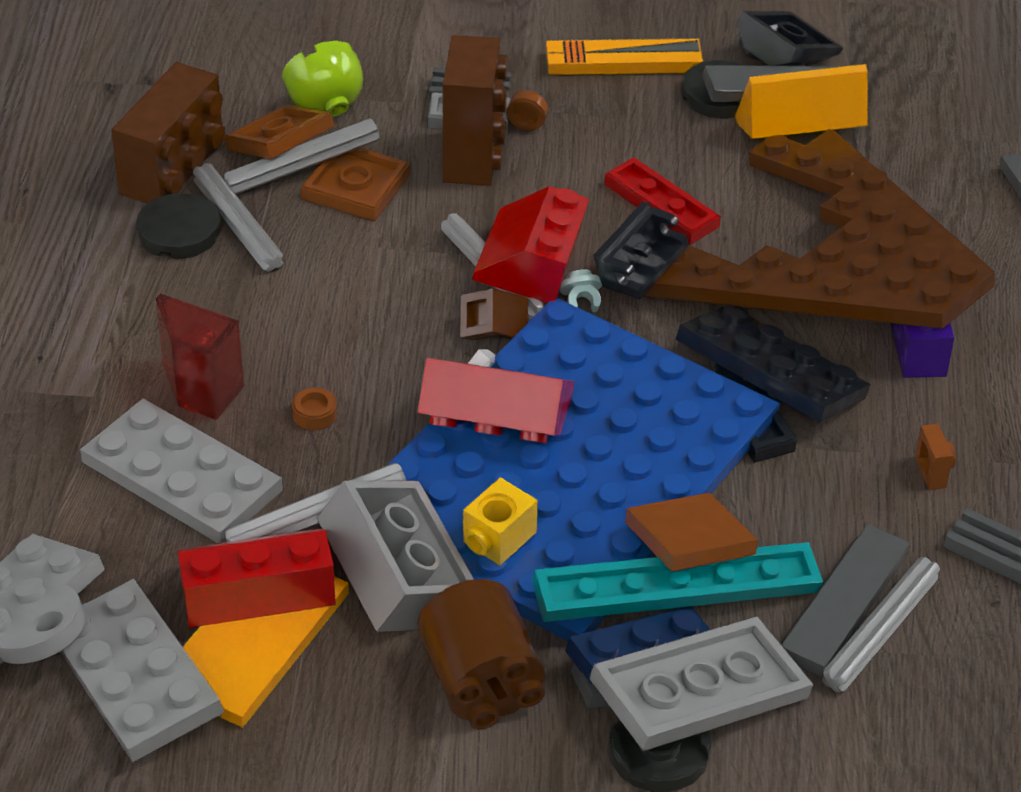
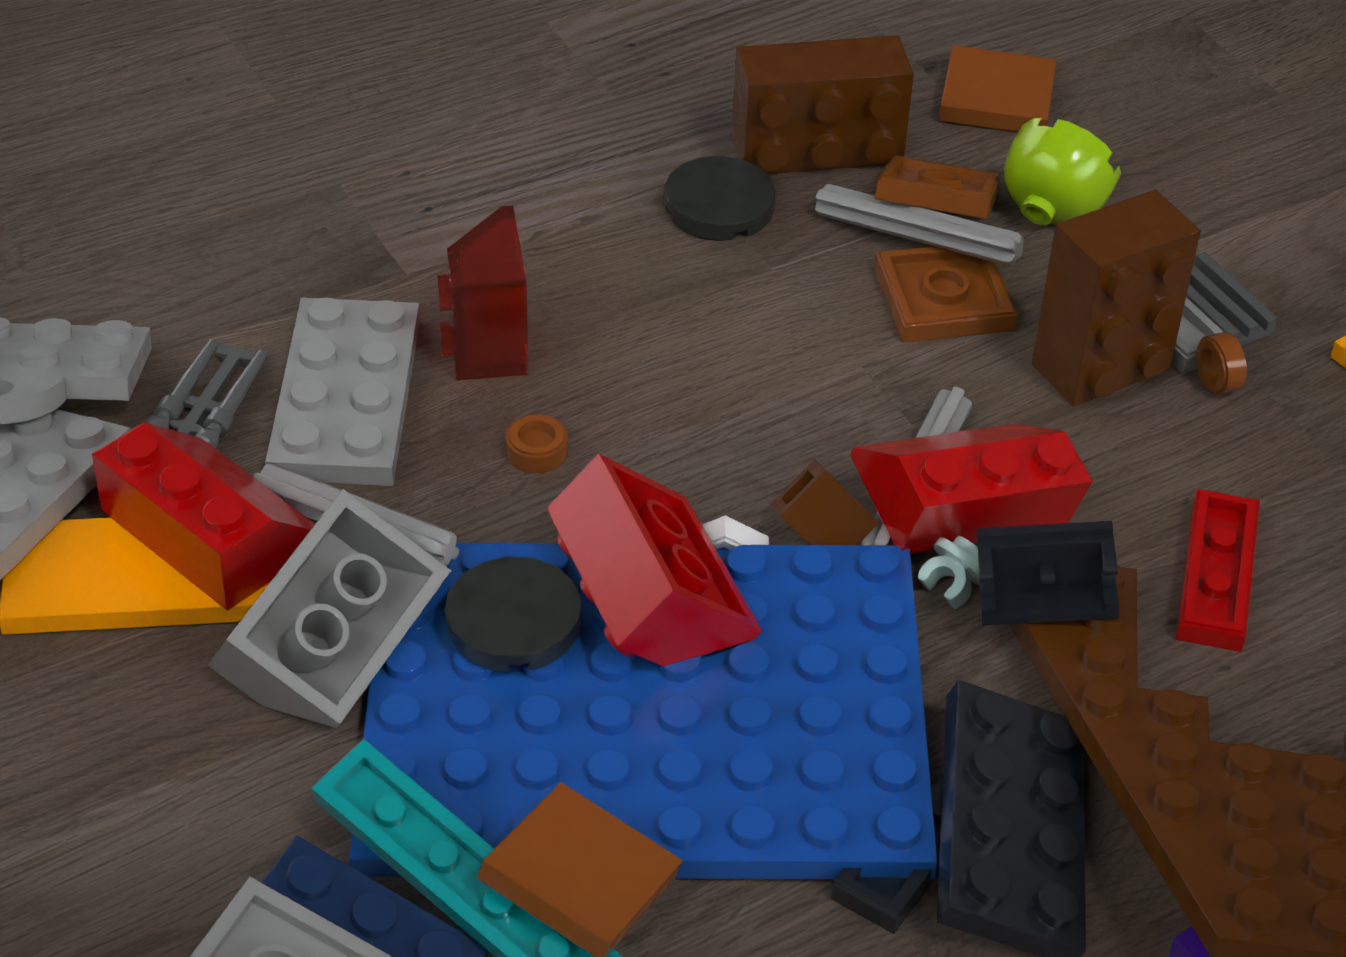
camera: 55 degrees right, 0 degrees up
(155, 577) = (220, 413): none -> dark grey piece
(214, 54) = (996, 89): none -> dark orange tile
(238, 217) = (776, 234): light grey axle -> none
(465, 467) = (513, 613): none -> pearl dark grey tile
(481, 651) = (216, 764): reddish brown cylinder -> none
(499, 521) = (437, 673): yellow brick -> none

